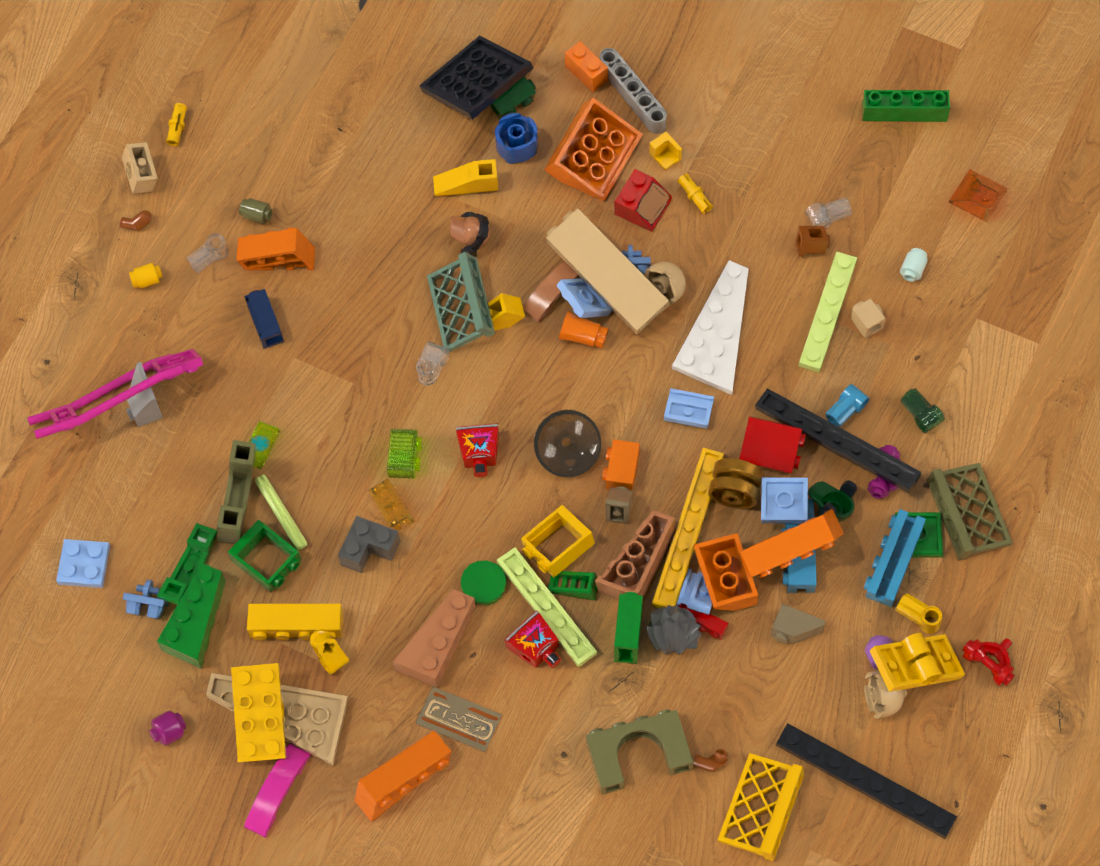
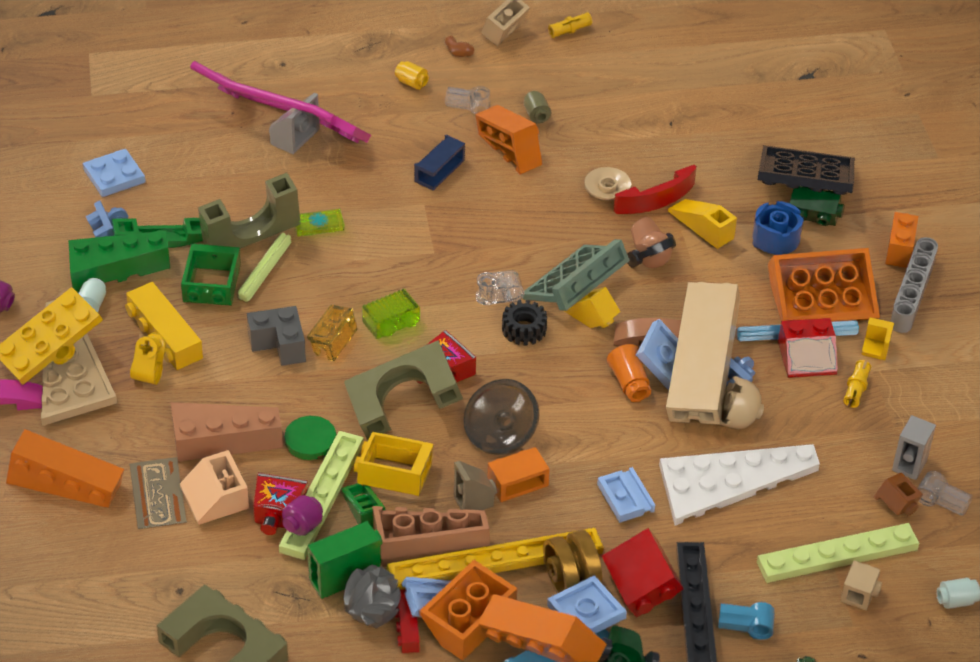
camera: 50 degrees right, 20 degrees down
(222, 657) = (93, 292): none -> light aqua brick
(379, 210) = (606, 182): none -> tan dish
(412, 210) = (634, 202): none -> red slope
(478, 379) = (522, 332): none -> black tyre
(489, 461) = (370, 388): none -> olive arch
(494, 677) = (215, 488): none -> light nougat slope
(570, 632) = (302, 515): none -> magenta head
(608, 208) = (771, 332): none -> dark azure axle
(784, 202) = (913, 447): none -> light grey brick

